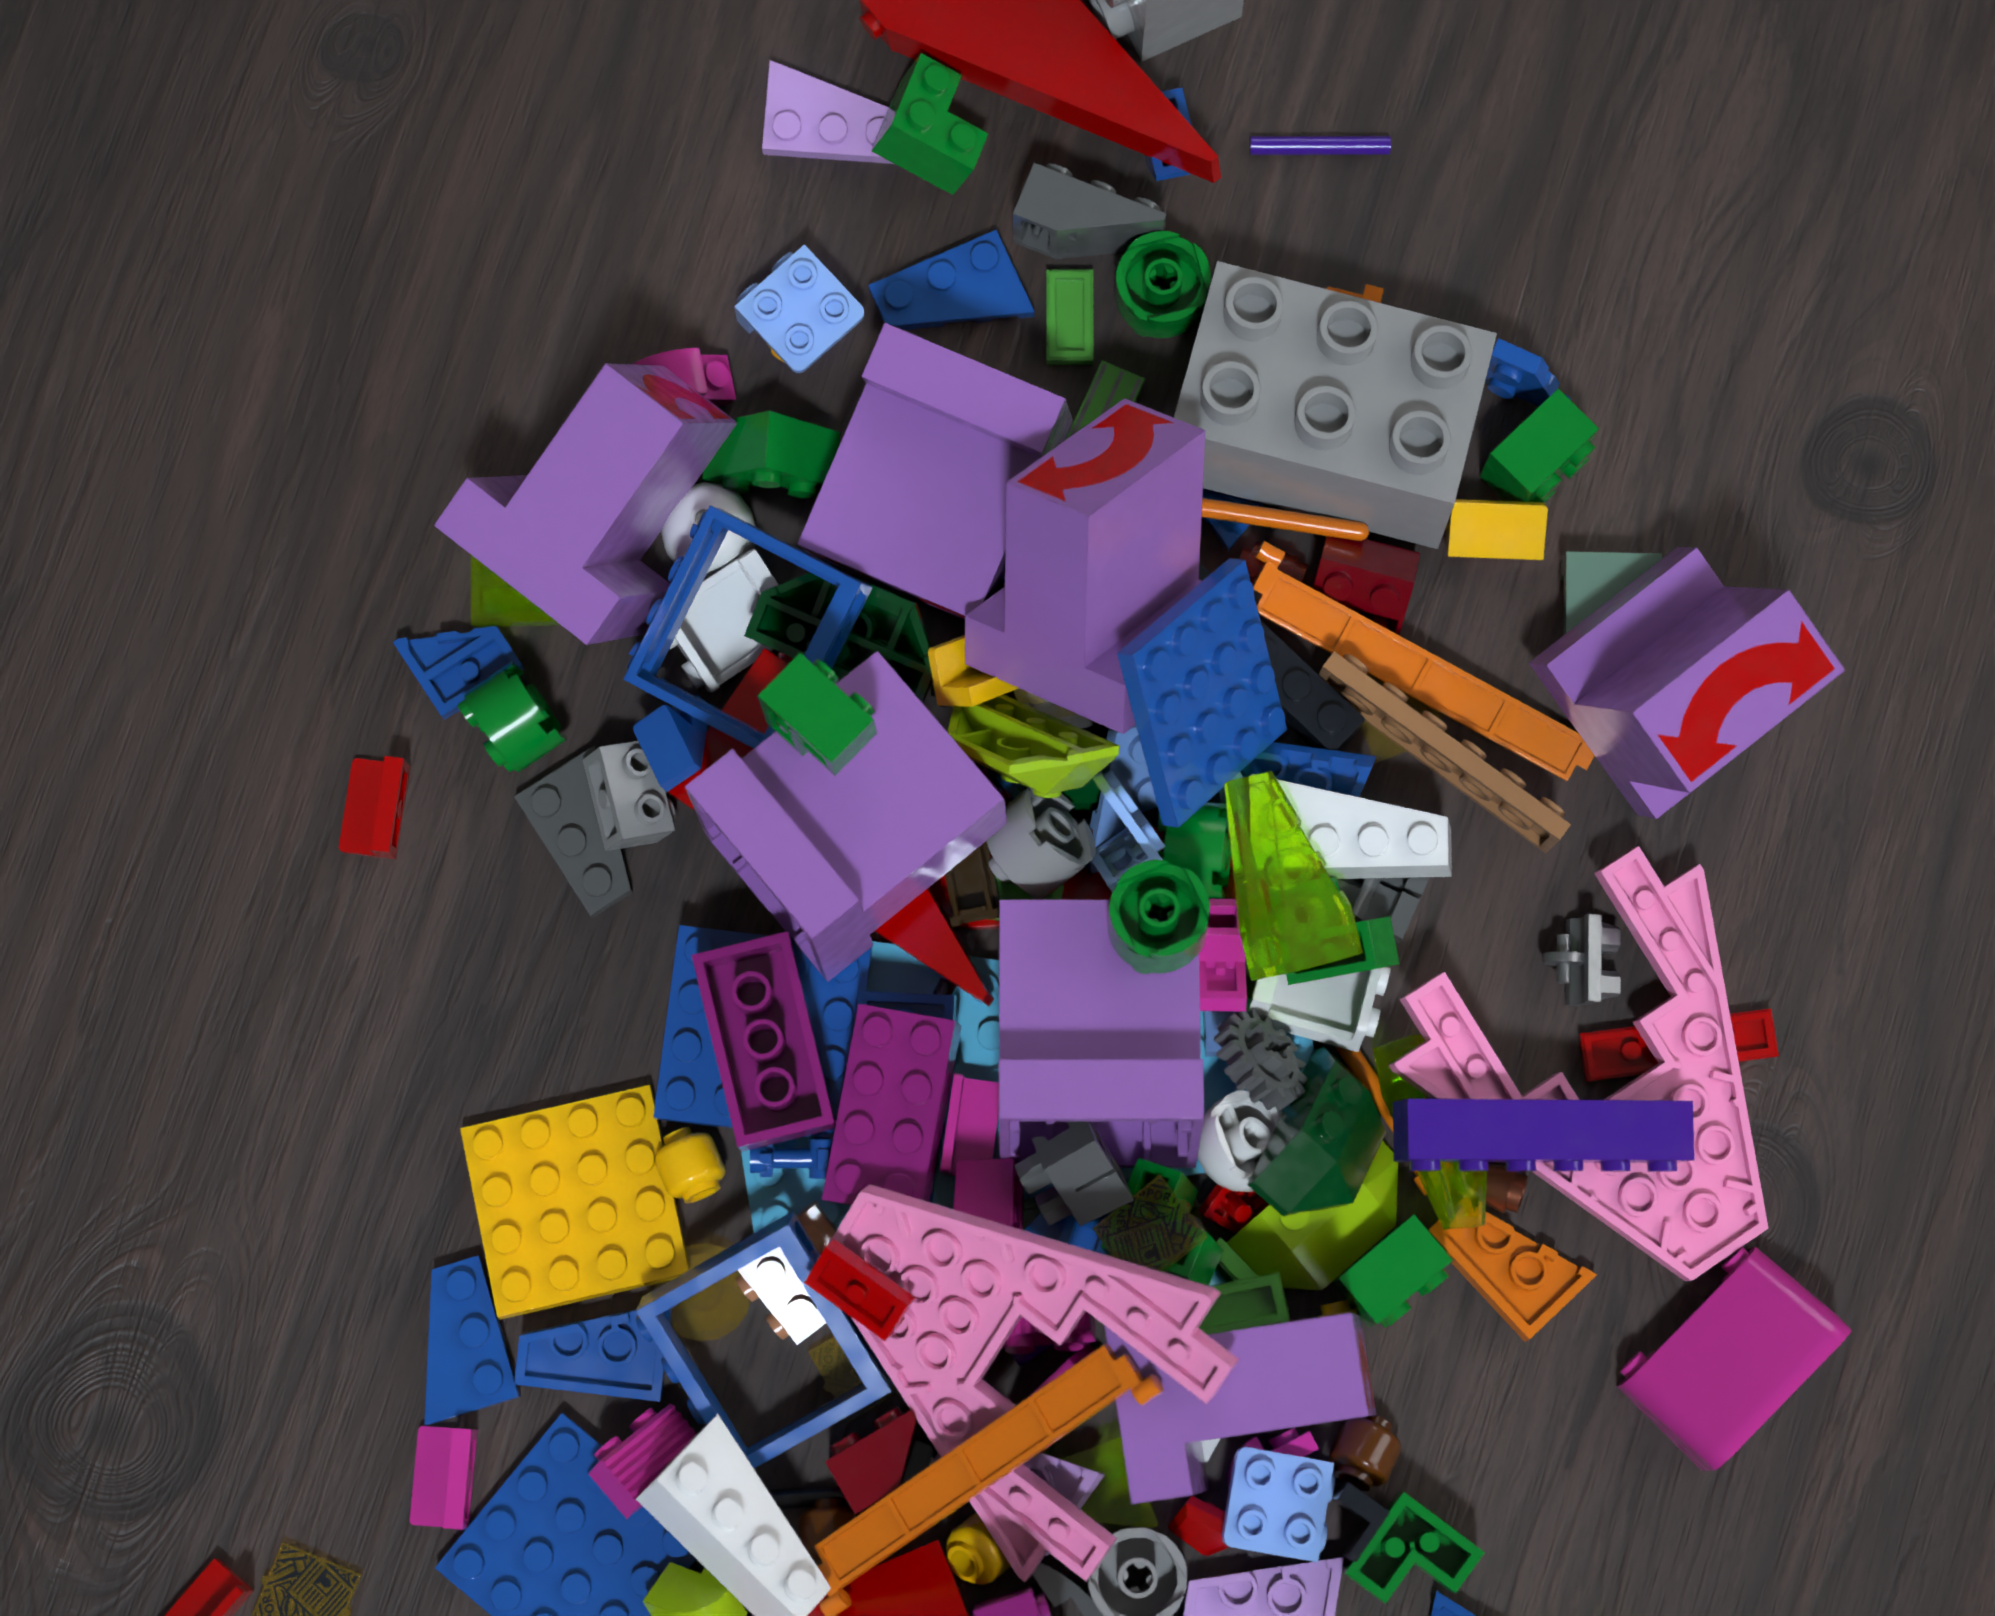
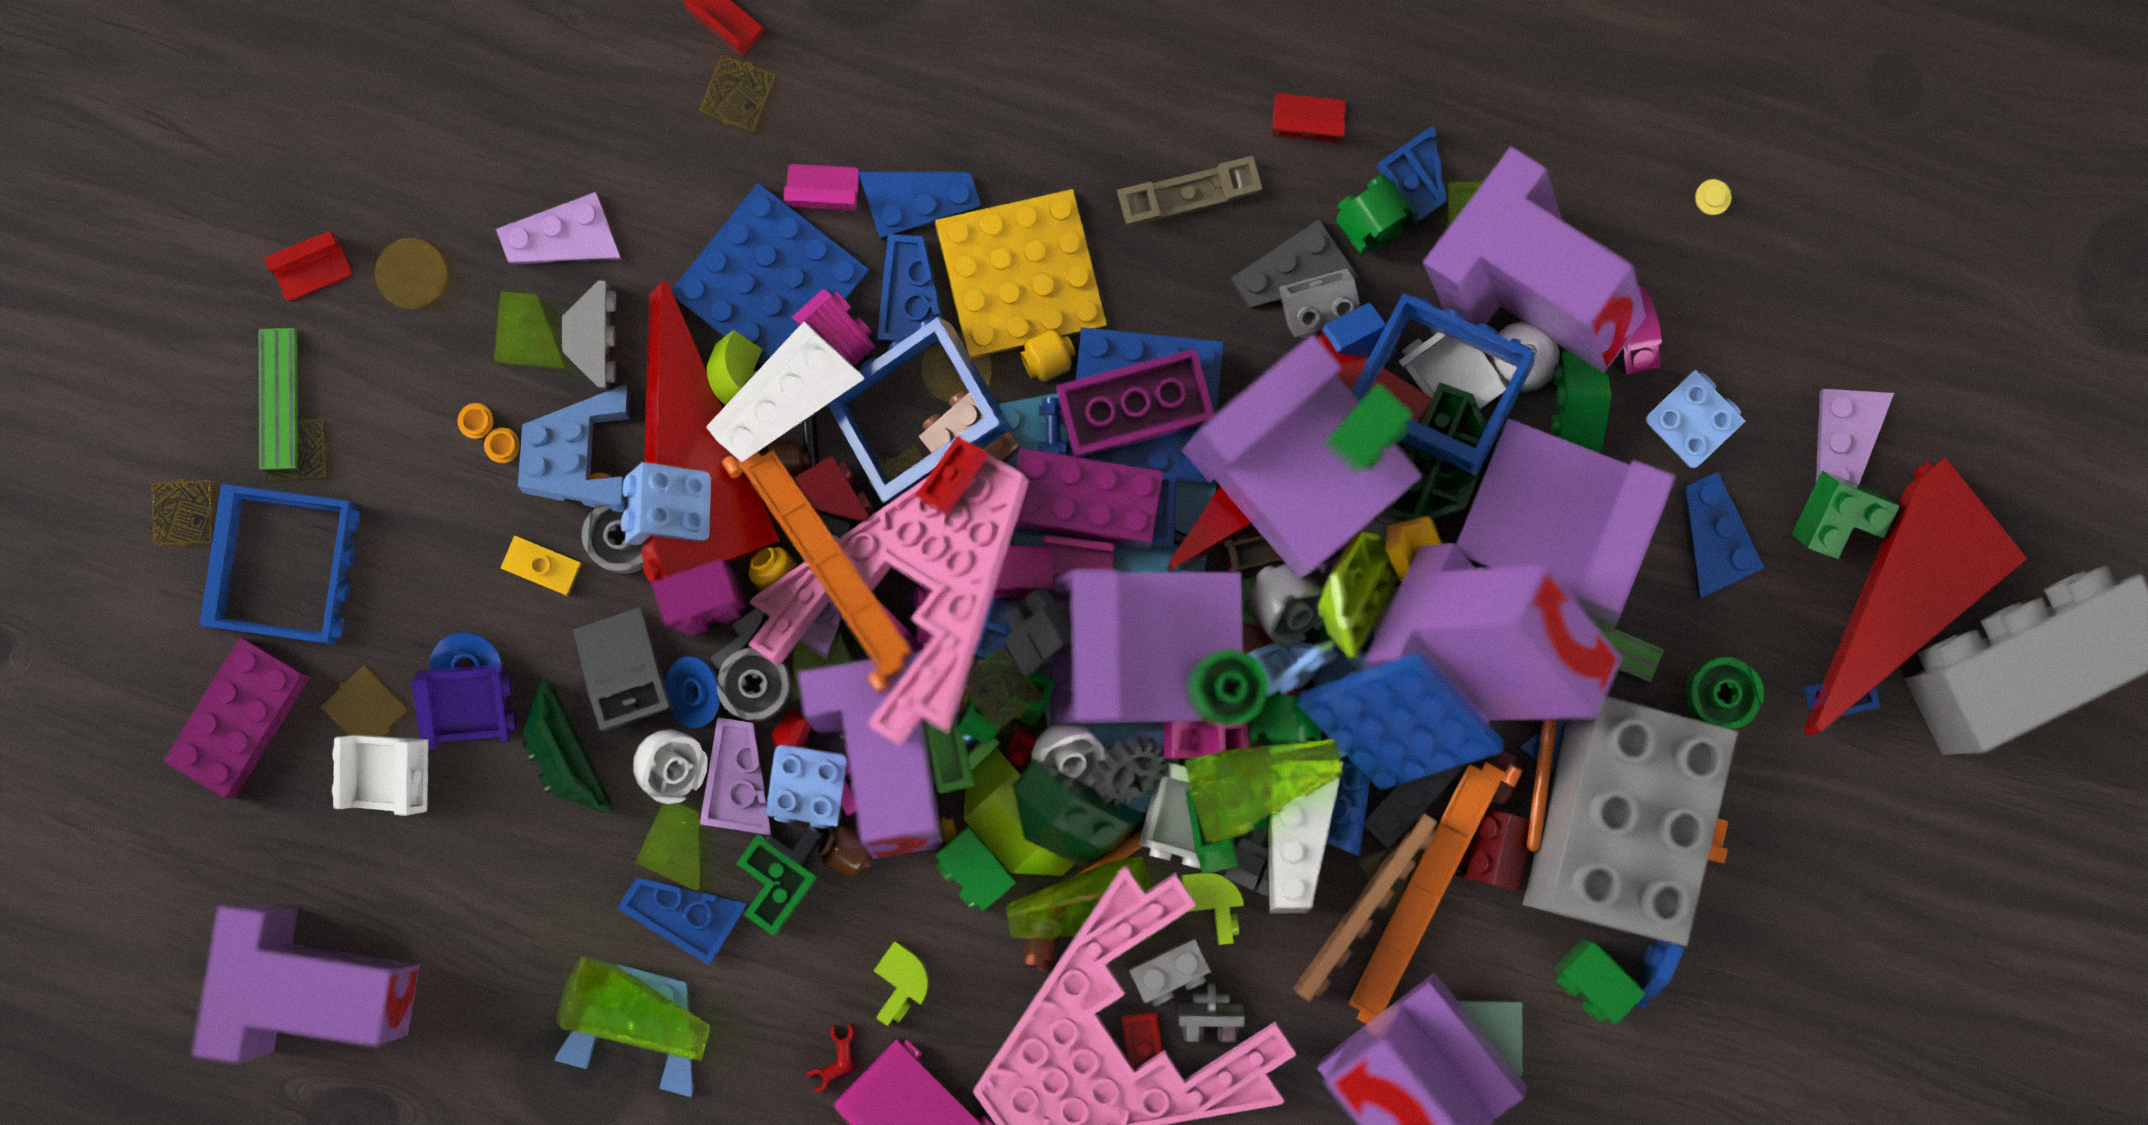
camera: 85 degrees right, 5 degrees up
(470, 968) = (1189, 192): none -> dark tan slope
(502, 281) = (1713, 197): none -> light yellow plate
(1069, 317) = (1697, 625): bright green tile -> none
(1079, 218) = (1772, 628): dark grey slope -> none
(1320, 145) = (1840, 815): dark purple bar -> none
(1426, 945) = (1216, 893): none -> lime brick
(1497, 529) = (1537, 949): yellow panel -> none
(1513, 1273) = (978, 960): orange wing -> none
(1527, 1014) = (1170, 970): none -> light grey brick
(1536, 1367) = (908, 975): none -> lime brick
(1543, 1132) = (1077, 979): dark purple brick -> none
(1652, 1458) = (843, 1065): none -> red arm

